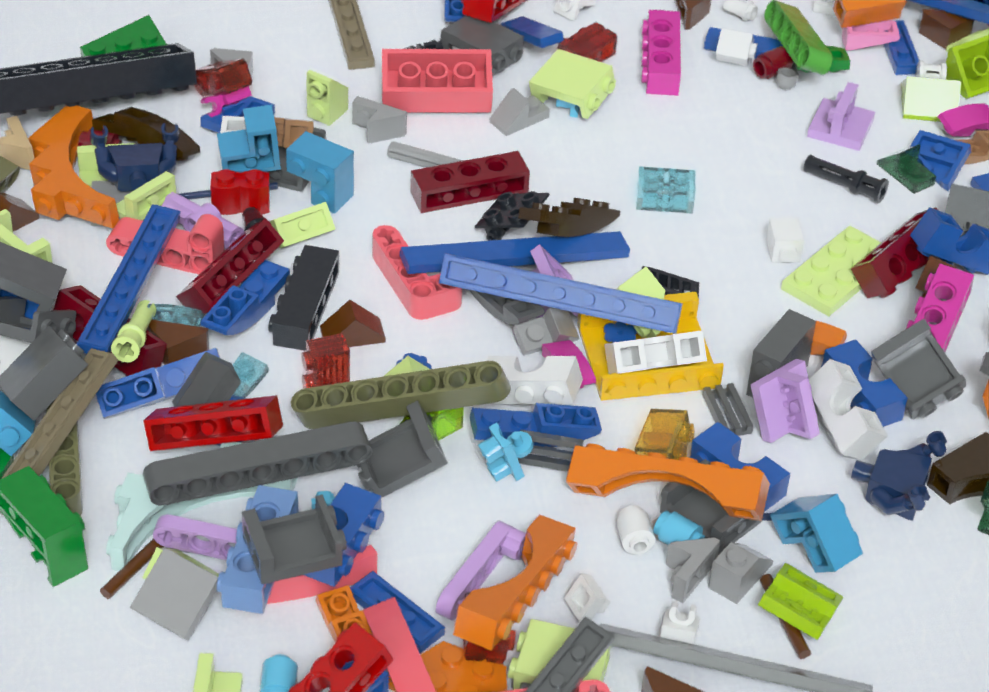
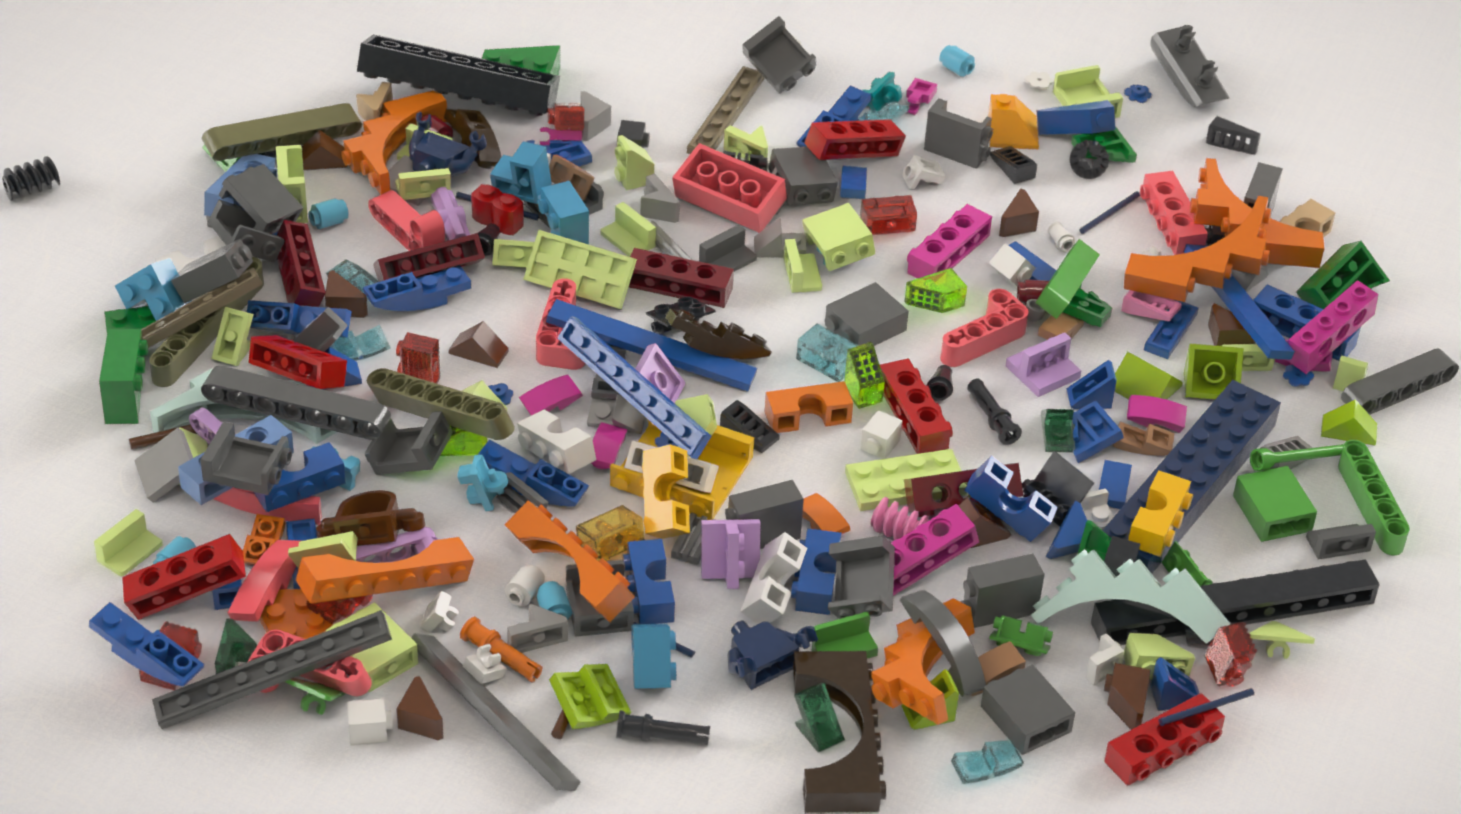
camera: 35 degrees right, 0 degrees up
(79, 267) = (328, 213): none -> medium azure brick
(109, 432) = (232, 337): none -> yellowish green slope
(129, 279) = (339, 235): blue tile -> none
(132, 335) = (295, 273): yellowish green pin -> none
(292, 75) = (635, 132): none -> black brick
(304, 297) = (467, 306): black brick -> none
(355, 211) = (596, 271): none -> yellowish green plate
(381, 159) = (630, 230): none -> yellowish green panel
(402, 36) = (740, 141): none -> yellowish green slope
(434, 593) = (339, 545): none -> yellowish green panel
(440, 543) = (372, 518): none -> reddish brown piece
(471, 341) = (551, 394): none -> dark pink slope
(483, 140) = (727, 249): none -> dark grey panel
(559, 128) = (801, 269): none -> yellowish green panel
(660, 600) = (480, 635): none -> orange pin
(664, 141) = (867, 316): none -> dark grey brick
(665, 355) = (661, 470): none -> yellow arch
(687, 251) = (828, 401): none -> orange arch
(698, 96) = (937, 292): none -> clear neon green slope
(725, 196) = (864, 375): none -> clear neon green slope
(737, 571) = (569, 649): light grey slope -> none
(776, 97) = (1002, 324): none -> coral beam
(777, 198) = (914, 405): none -> red brick
(782, 173) = (941, 383): none -> black cone
(821, 85) = (1064, 323): none -> medium nougat slope
(877, 601) = (647, 727): none -> black pin
(883, 306) = (893, 522): none -> bright pink piece
(905, 120) = (1096, 385): none -> blue slope
(931, 71) = (1159, 359): white bush -> none
(954, 428) = (846, 635): none -> bright green panel

